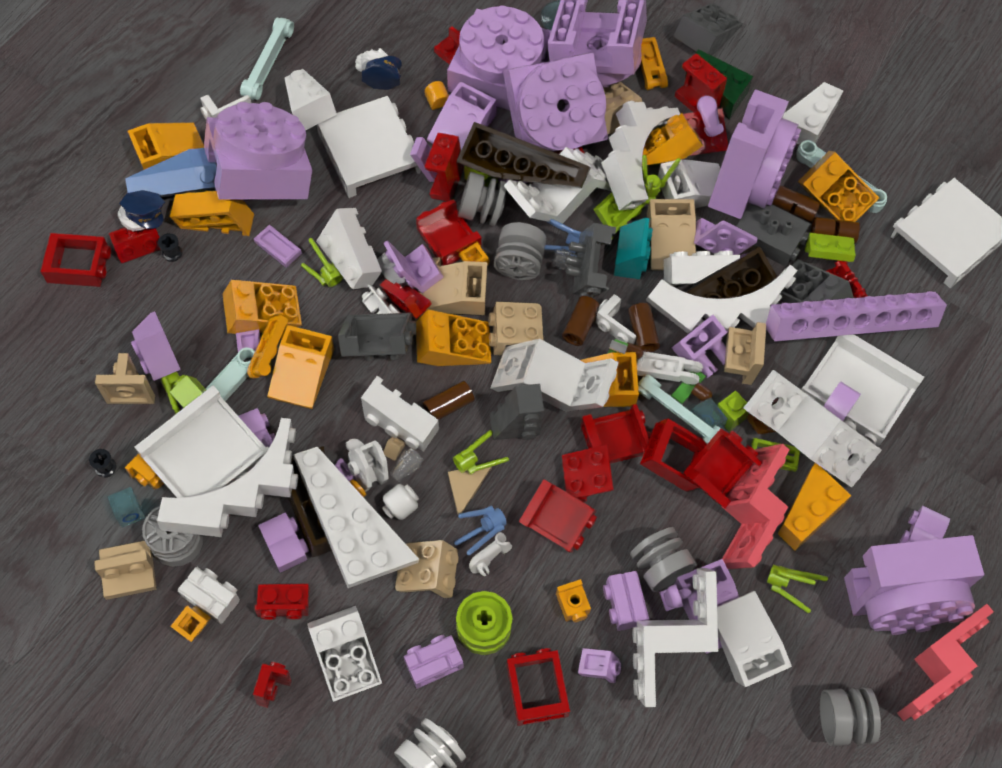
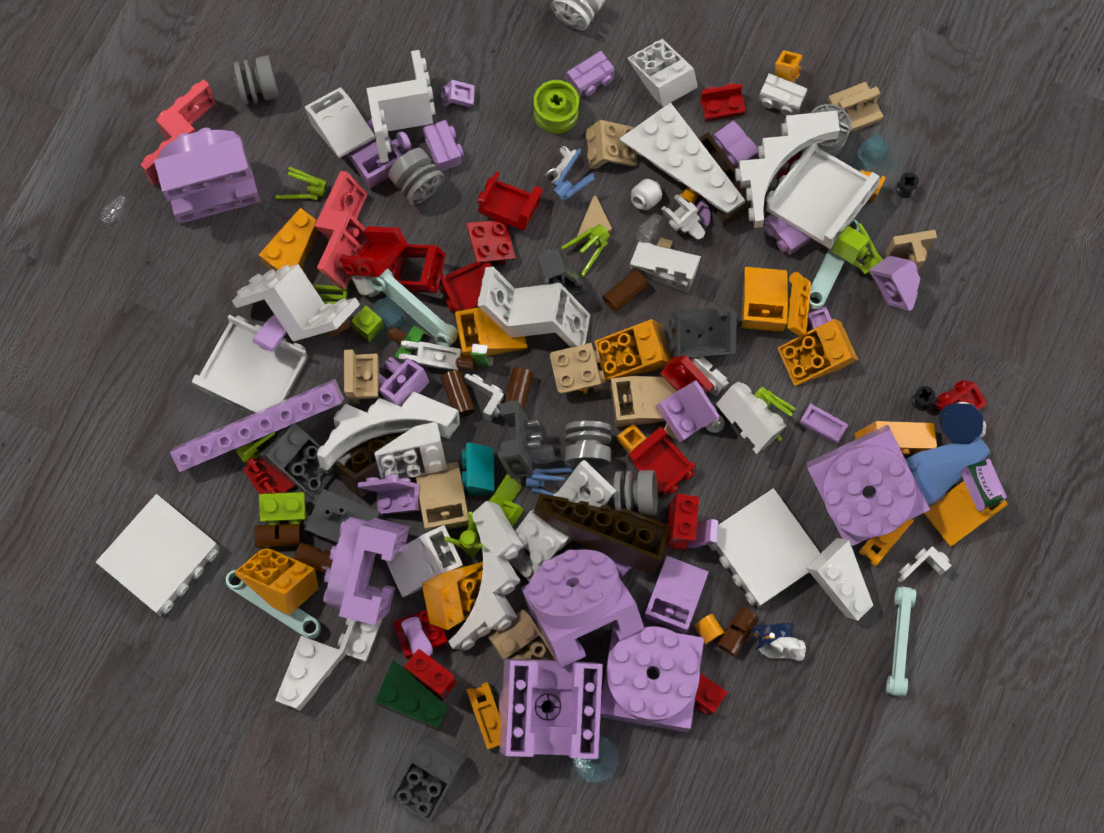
camera: 170 degrees right, 10 degrees up
(53, 256) = (1027, 367): red window -> none
(145, 140) = (983, 484): none -> lavender piece
(265, 686) = (710, 36): red bracket -> none
(412, 87) = (738, 631): none -> reddish brown pin
(540, 713) = (499, 51): red window -> none
(572, 611) = (489, 144): light orange brick -> none
(925, 526) = (191, 242): lavender brick -> none

